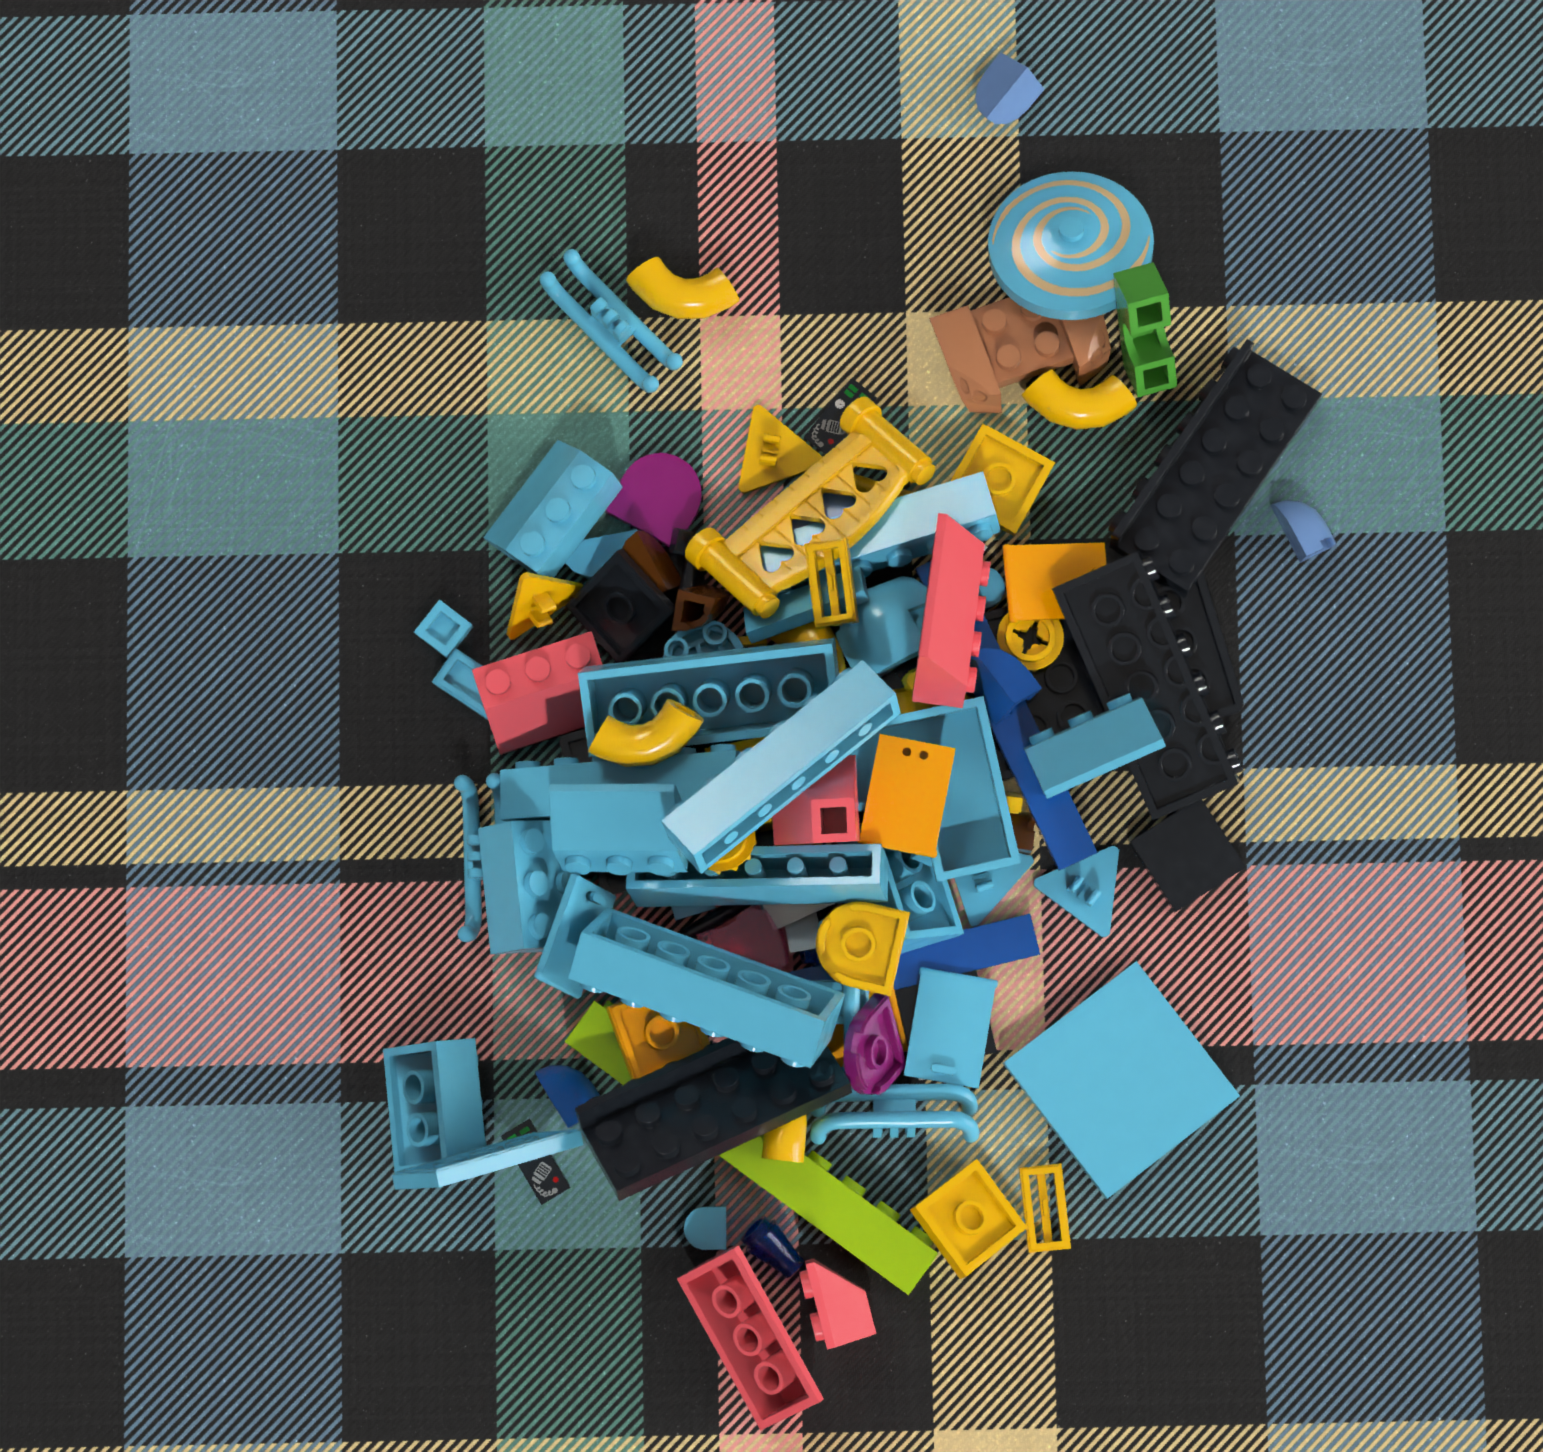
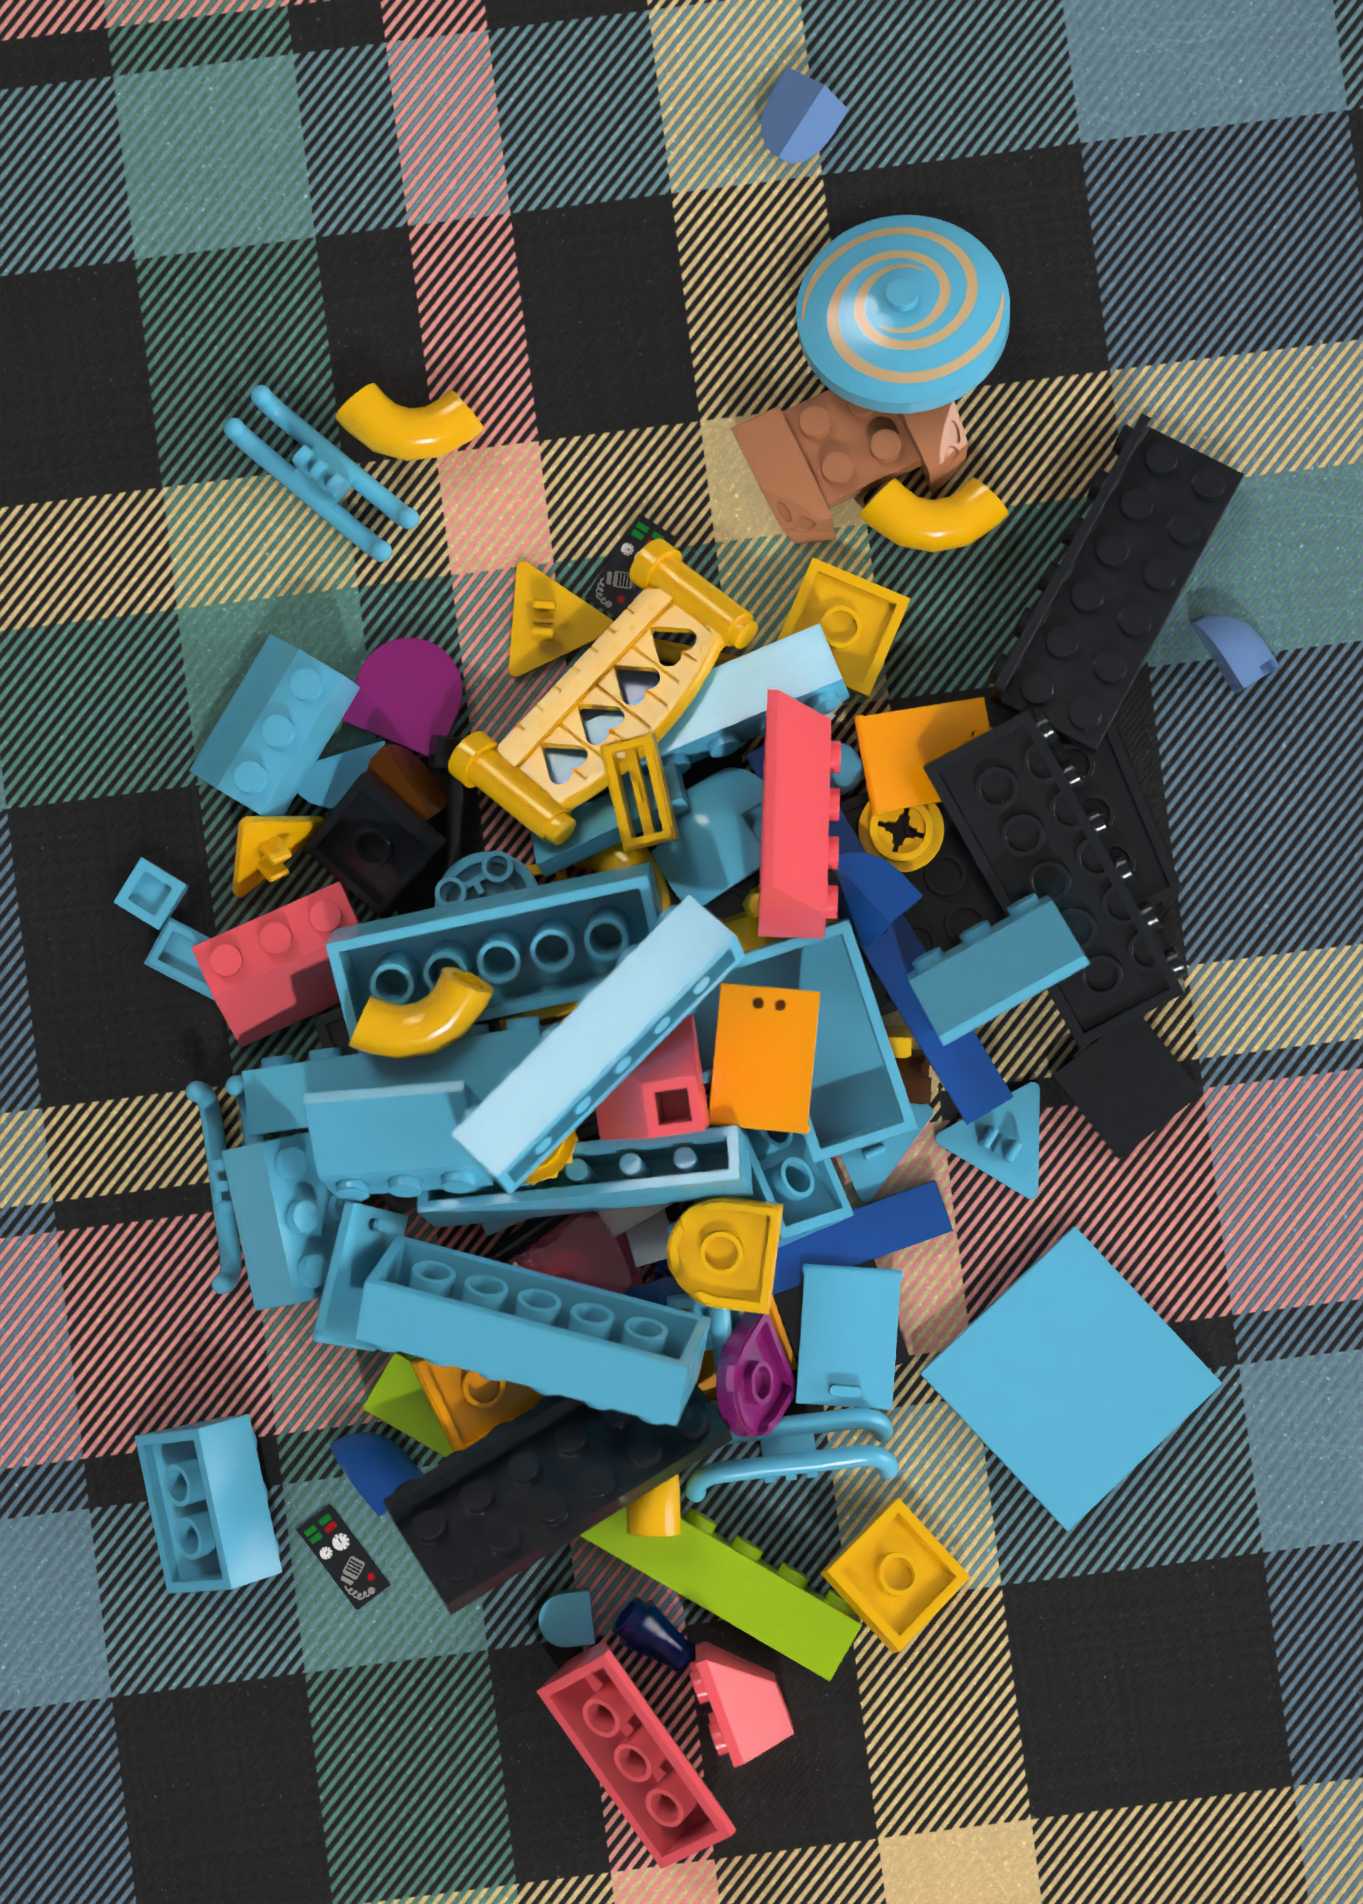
camera: 10 degrees left, 5 degrees up
(487, 1159) = (278, 1575): medium azure tile -> none
(698, 606) = (472, 833): reddish brown brick -> none
(1040, 1172) = (979, 1503): yellow tile -> none
(1142, 316) = (1005, 406): bright green arch -> none

